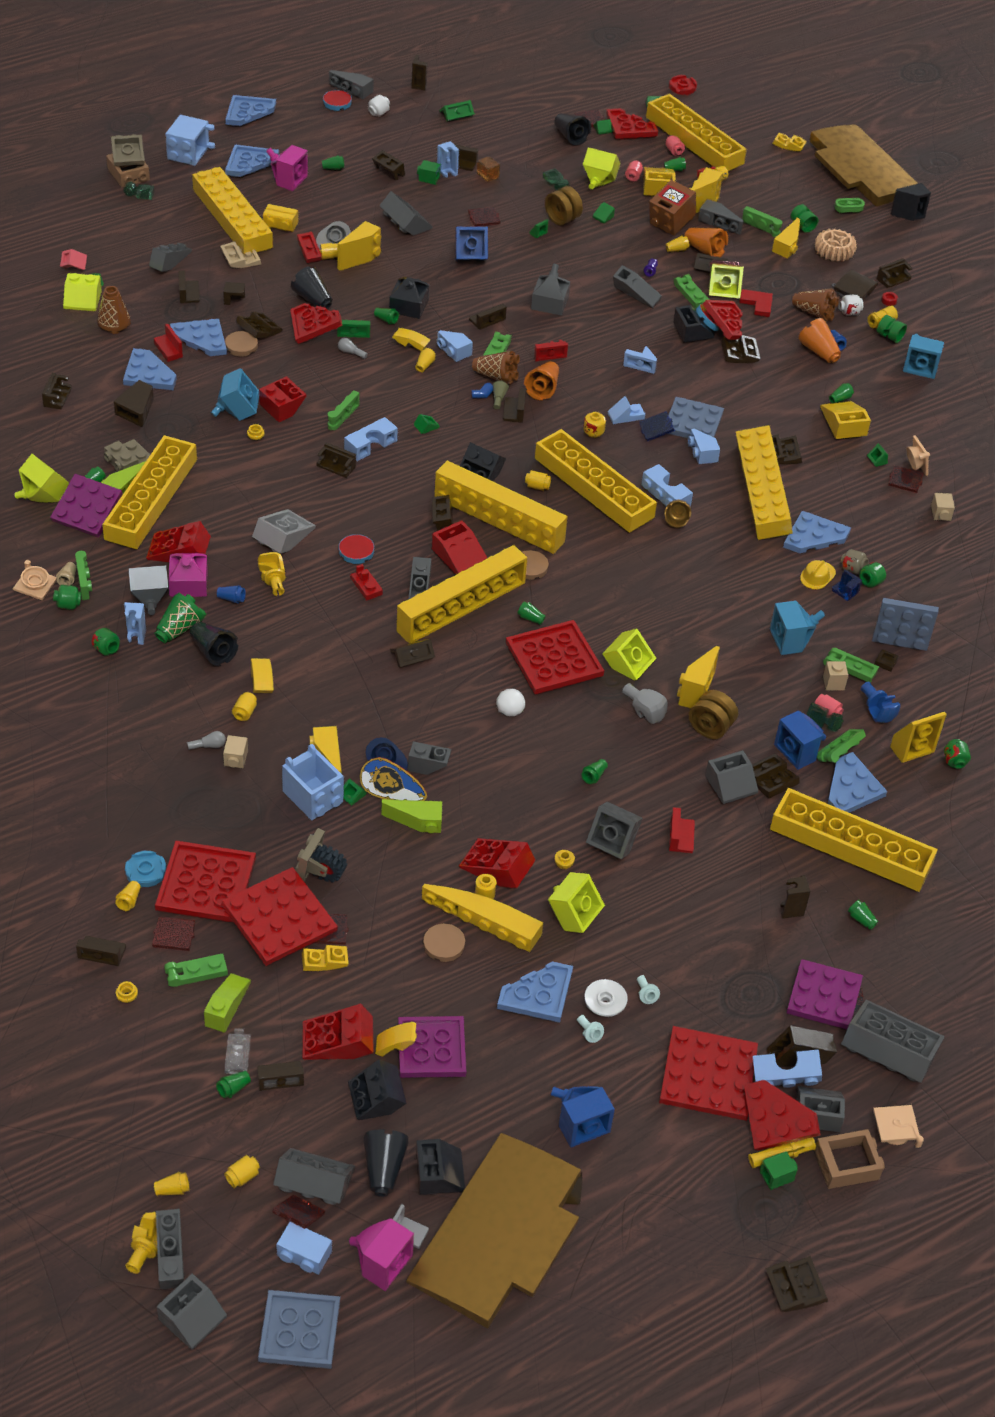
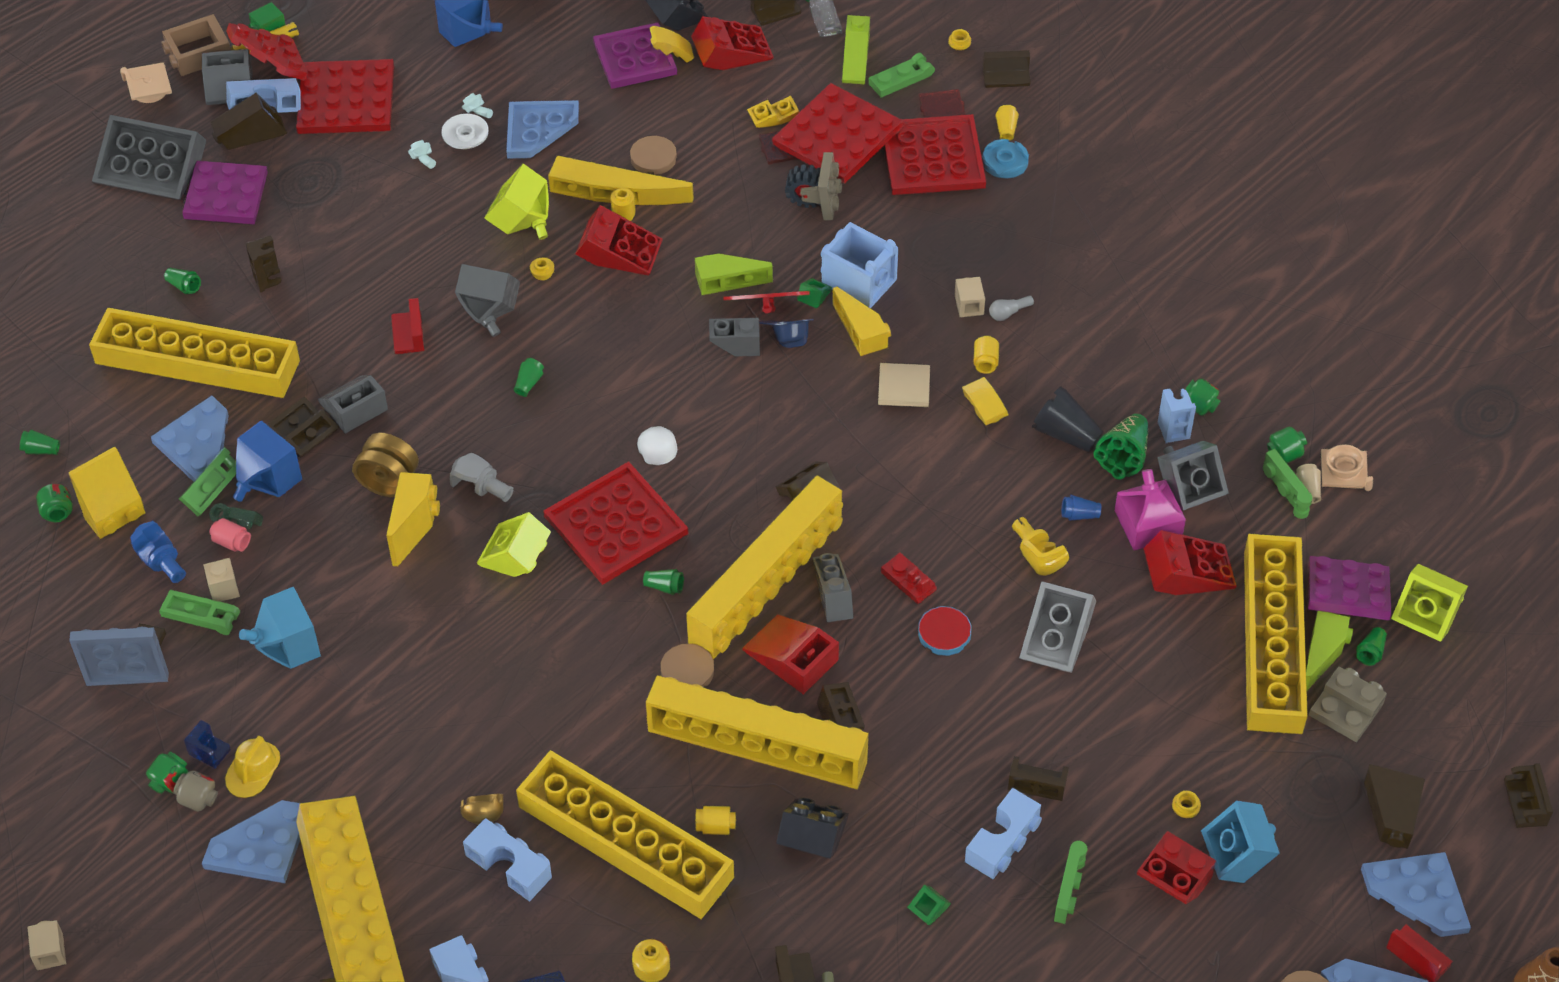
camera: 170 degrees right, 5 degrees up
(314, 702) = (904, 384): none -> tan slope
(973, 805) = (38, 443): none -> green cone

